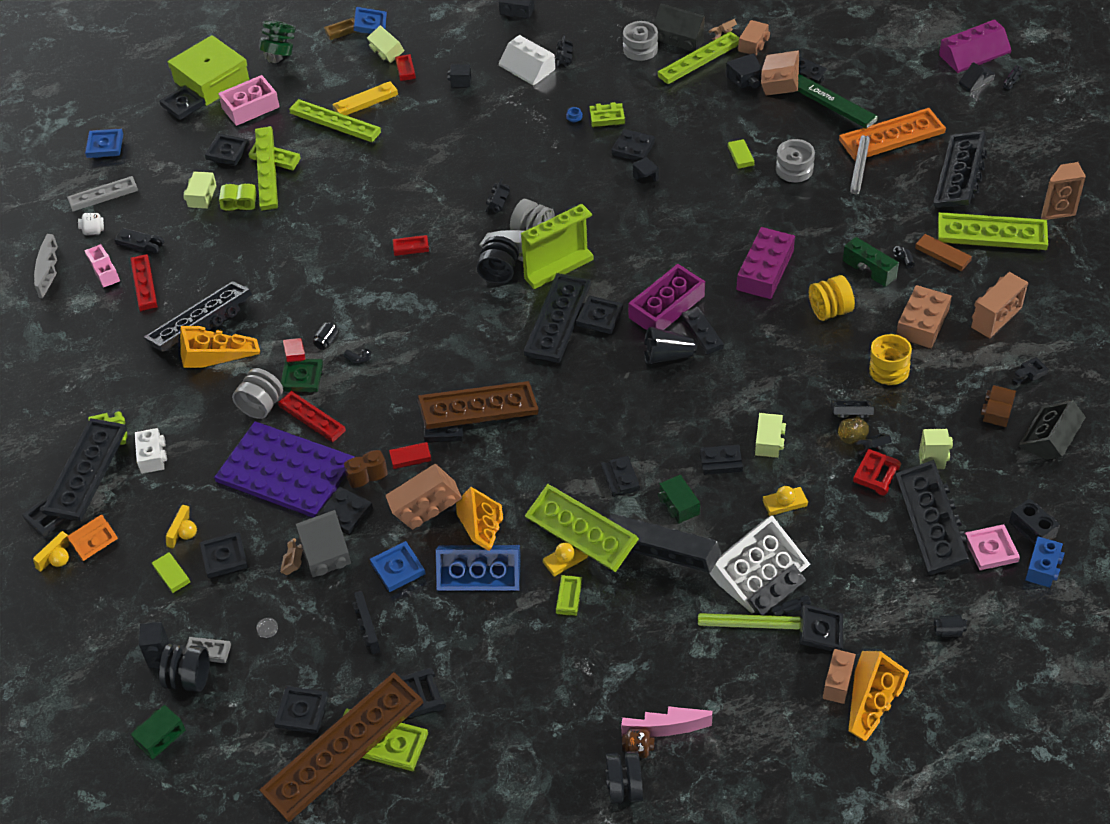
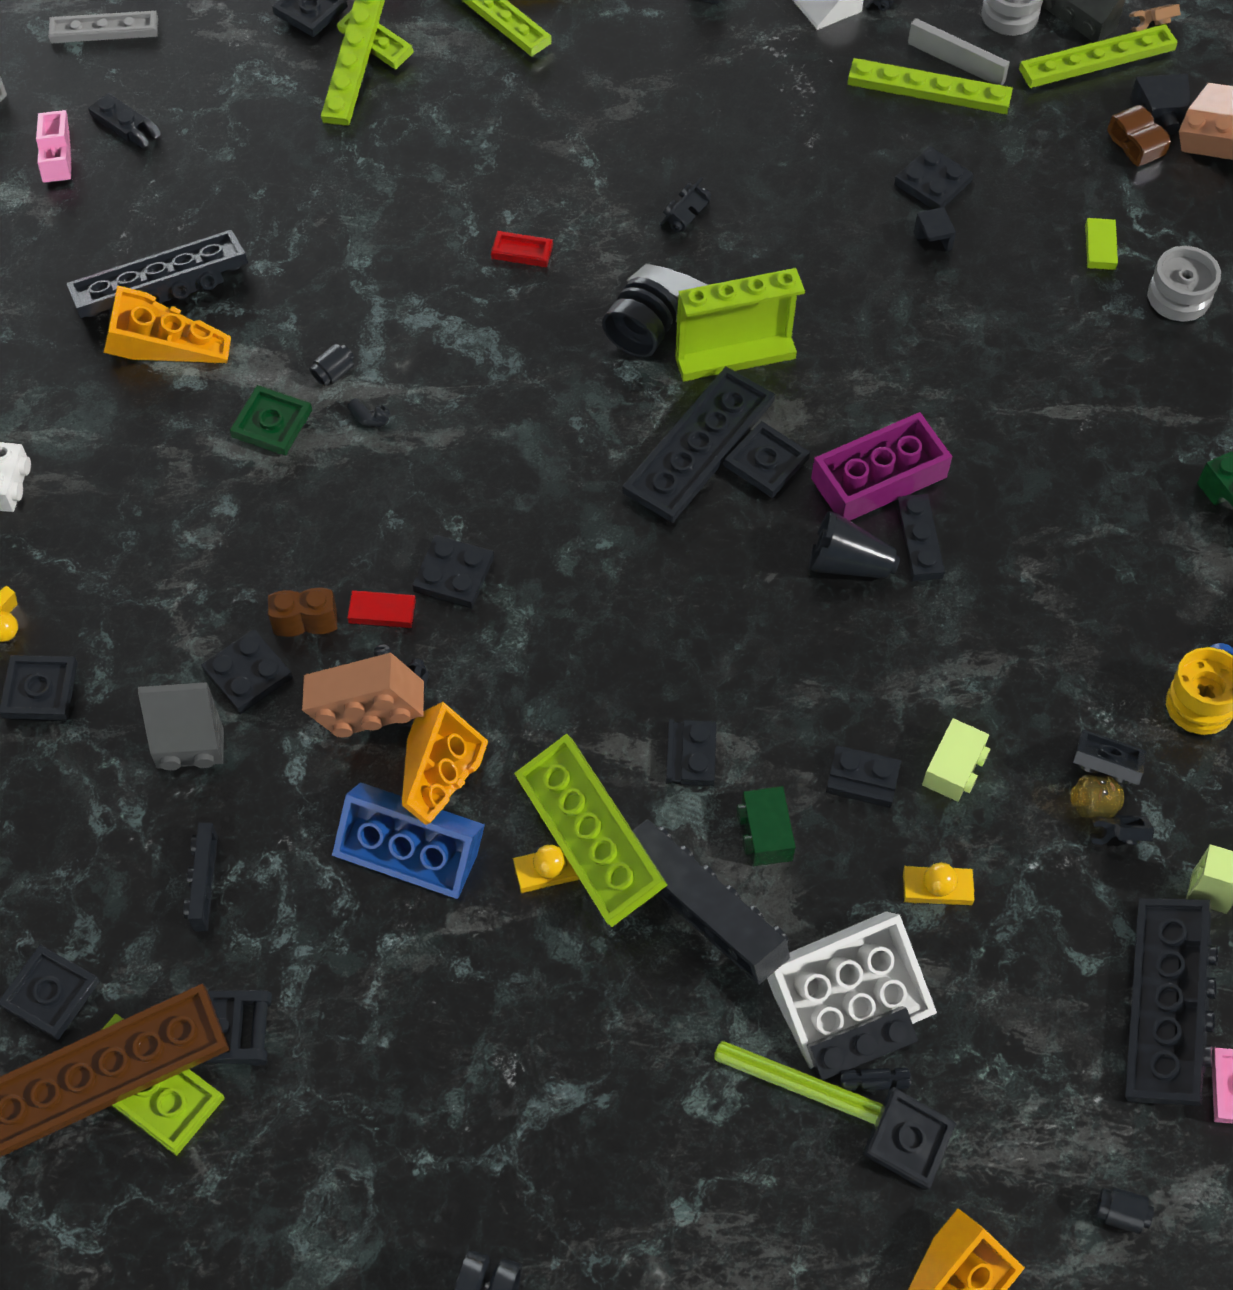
camera: 15 degrees right, 10 degrees up
(91, 224) = (64, 73): white head -> none
(143, 282) = (104, 192): red tile -> none
(200, 190) = (244, 63): yellowish green brick -> none
(238, 197) = (294, 90): lime brick -> none
(257, 393) = (189, 433): light grey wheel -> none
(267, 627) = (56, 831): clear piece -> none
(284, 469) = (185, 571): dark purple plate -> none
(292, 558) = (132, 732): medium nougat plate -> none
(294, 350) = (275, 374): tile -> none
(312, 416) = (261, 494): red tile -> none
(397, 566) = (286, 795): blue plate -> none
(477, 405) = (513, 558): reddish brown plate -> none
(529, 214) = (718, 258): light grey wheel -> none
(569, 595) = (530, 935): lime tile -> none
(574, 114) = (860, 99): blue plate -> none
(607, 114) = (911, 113): lime plate -> none
(620, 76) = (958, 52): none -> light grey tile
(623, 96) = (930, 86): none -> lime plate
(638, 740) = (534, 1240): reddish brown head -> none
(675, 722) = (608, 1223): bright pink slope -> none
(739, 92) = (1139, 135): none -> reddish brown brick
(753, 37) = (1199, 45): nougat brick -> none
(765, 263) = (1067, 450): magenta brick -> none
(831, 297) = (1150, 548): yellow wheel -> none
(839, 676) = (904, 1237): nougat brick -> none
(871, 468) = (1101, 875): red plate -> none

